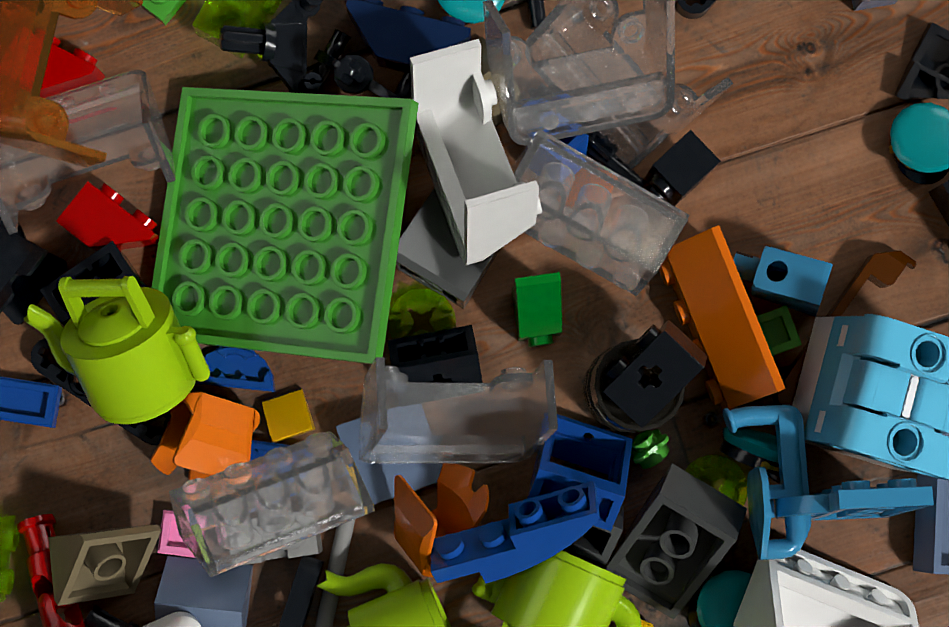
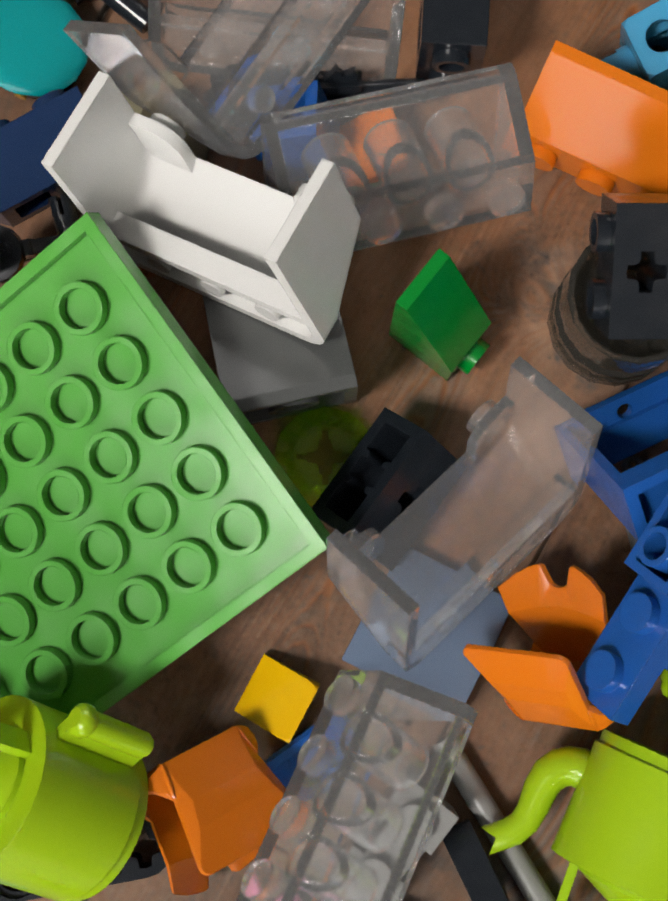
camera: 40 degrees left, 0 degrees up
(238, 369) = (175, 698): blue tile -> none

